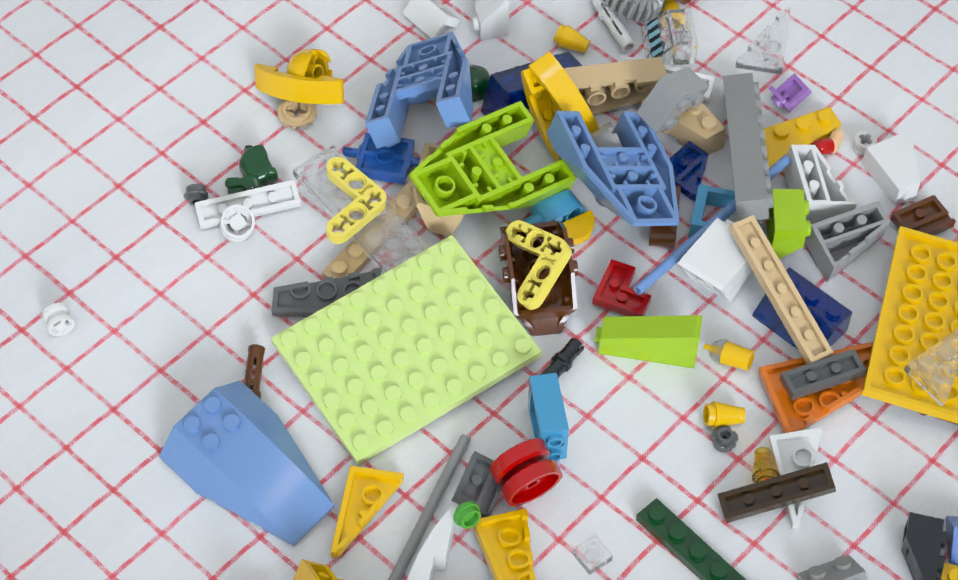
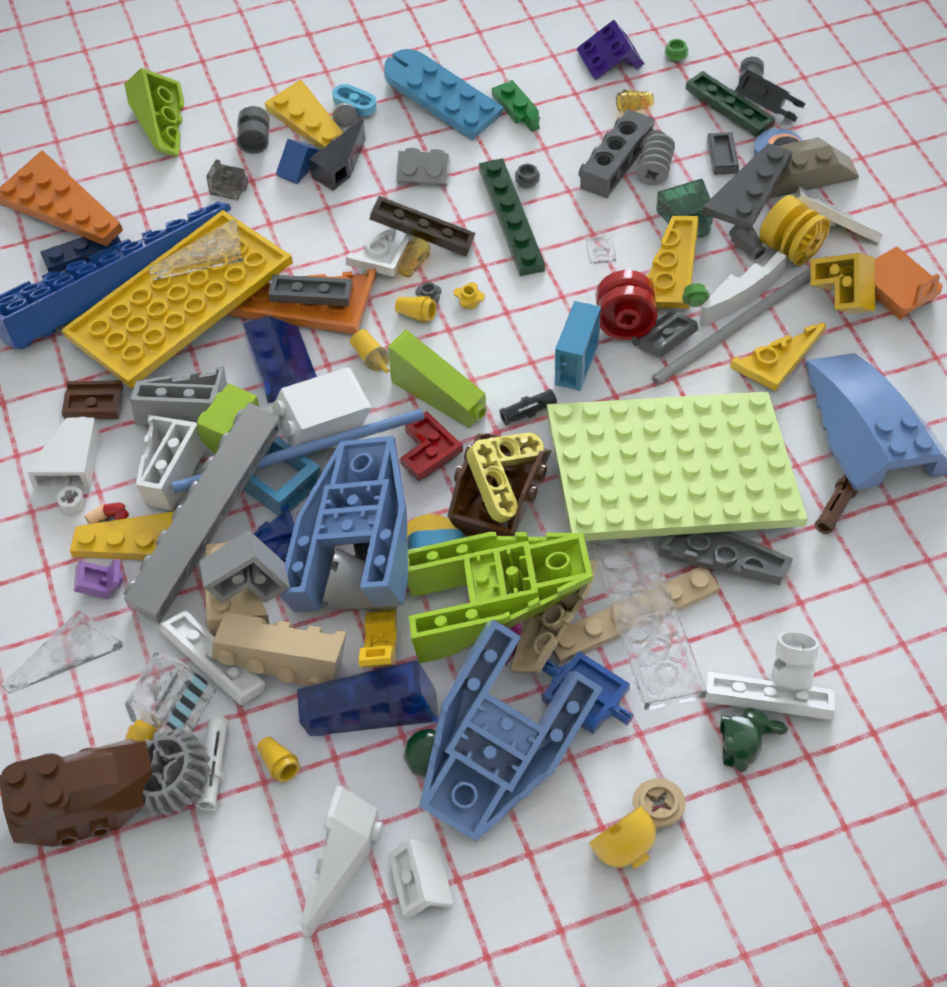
camera: 150 degrees left, 0 degrees up
(195, 193) = (824, 738): dark grey plate -> none
(298, 88) = (677, 850): yellow slope -> none
(361, 200) = (647, 616): light yellow beam -> none
(561, 88) = (359, 633): yellow slope -> none
(685, 458) = (469, 295): none -> yellow plate
(780, 290) = (296, 349): tan plate -> none

